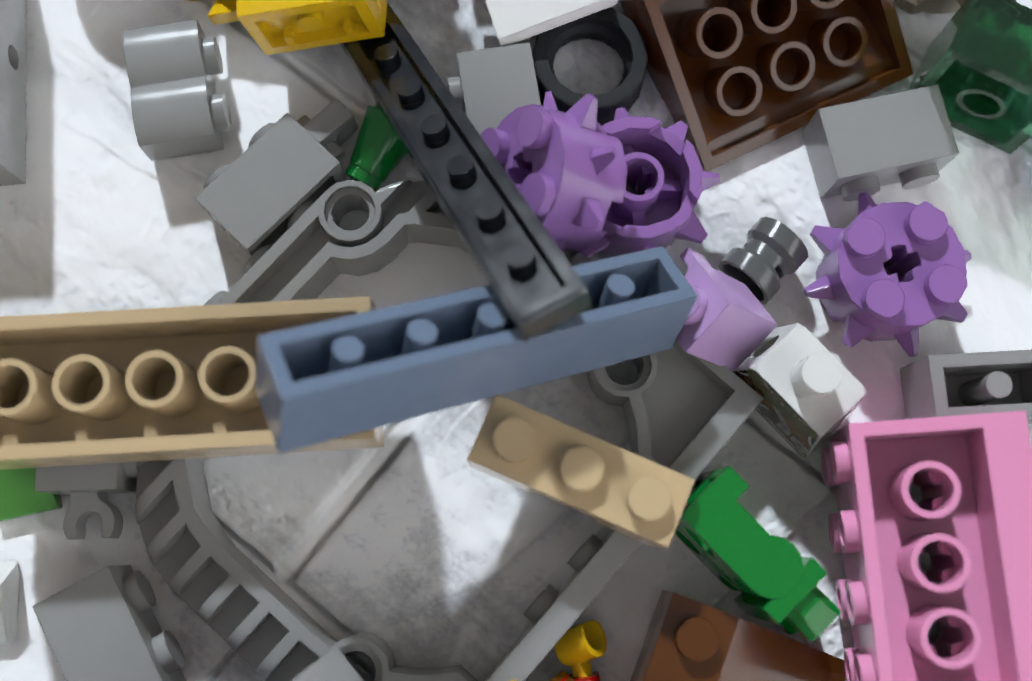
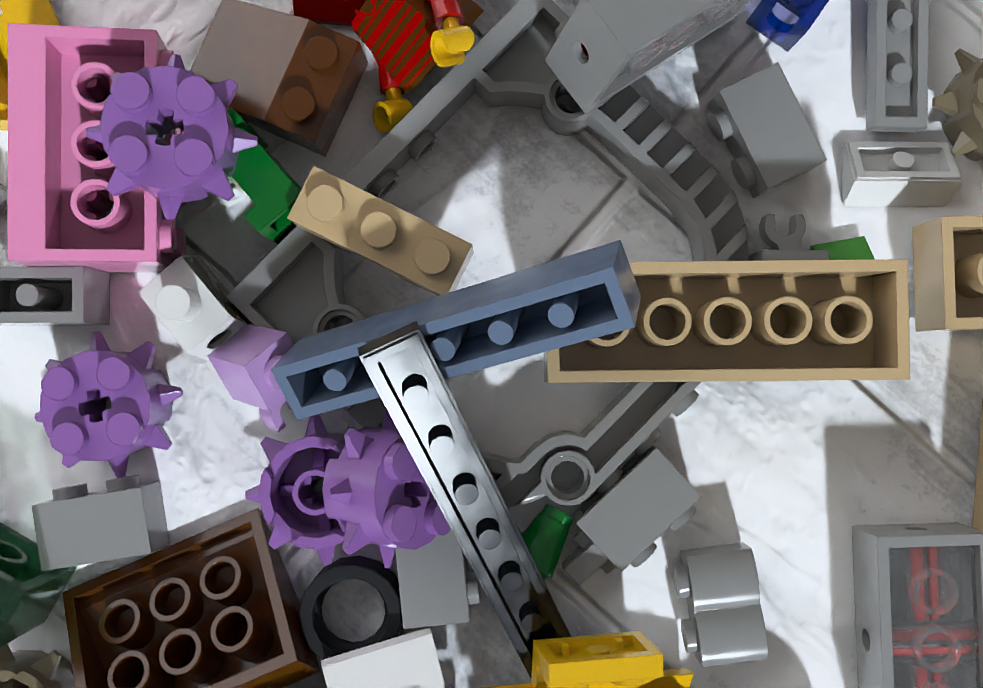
camera: 170 degrees left, 10 degrees up
(766, 257) = (212, 424): dark grey wheel -> none
(892, 581) = (148, 107): none -> medium lavender brick

